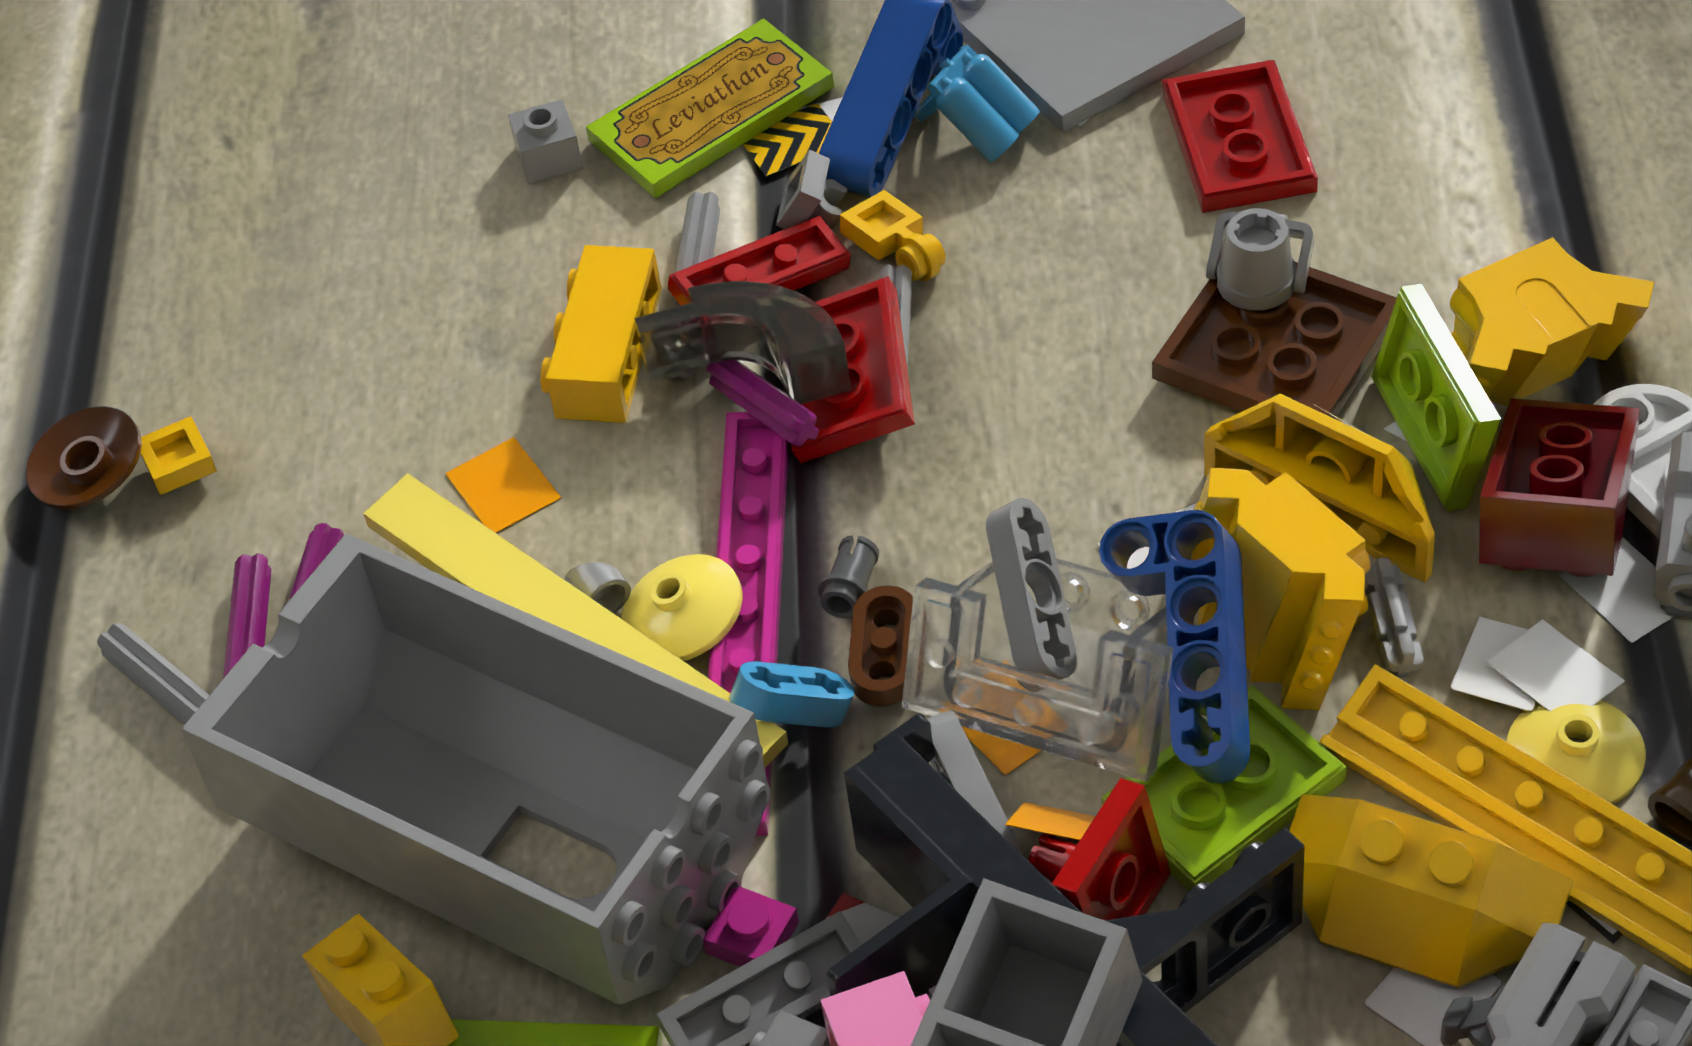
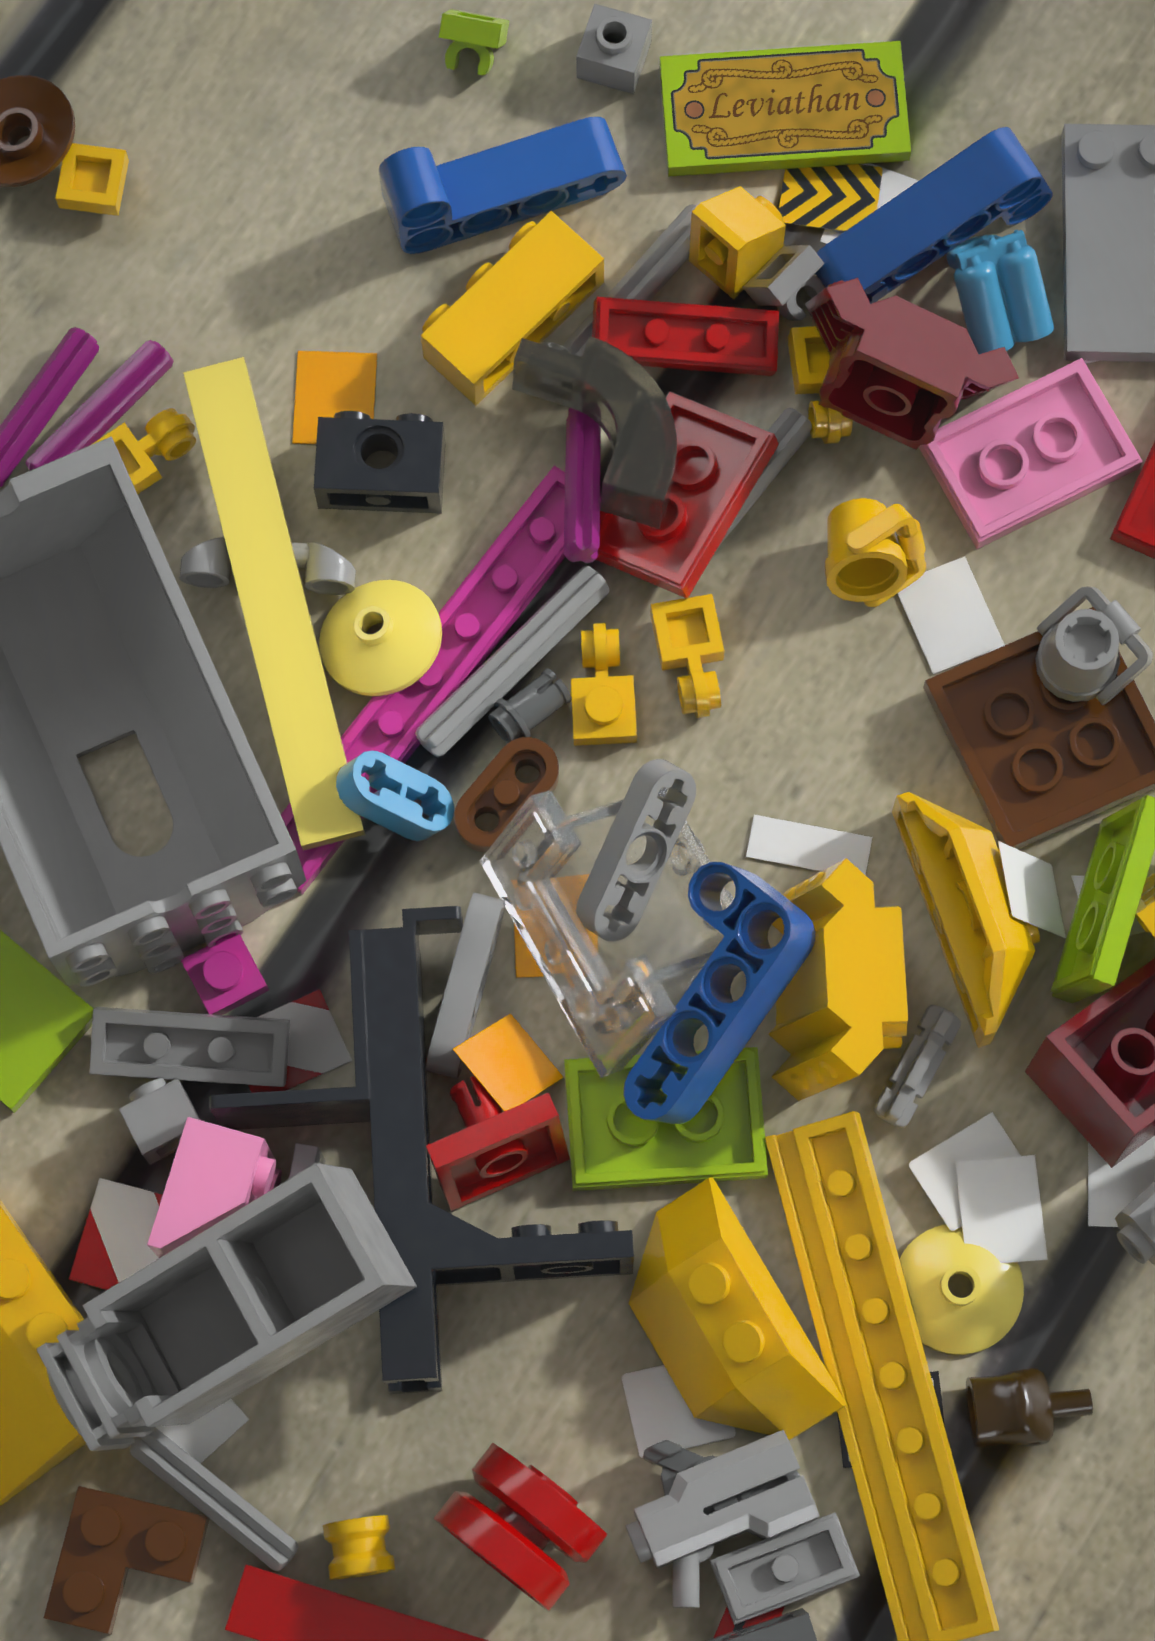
camera: 30 degrees right, 25 degrees up
(424, 188) = (472, 32): none -> lime tile
(497, 296) = (497, 185): none -> blue beam
(582, 492) = (407, 485): none -> black brick
(744, 191) = (734, 238): none -> yellow slope
(806, 558) = (512, 661): none -> light grey axle
(908, 544) = (602, 704): none -> yellow plate
(941, 450) = (687, 637): none -> yellow plate
(944, 165) = (898, 363): none -> dark red slope
(1032, 311) = (864, 553): none -> yellow piece
(1091, 195) = (1030, 453): none -> bright pink tile
(1124, 327) = (950, 616): none -> white sticker

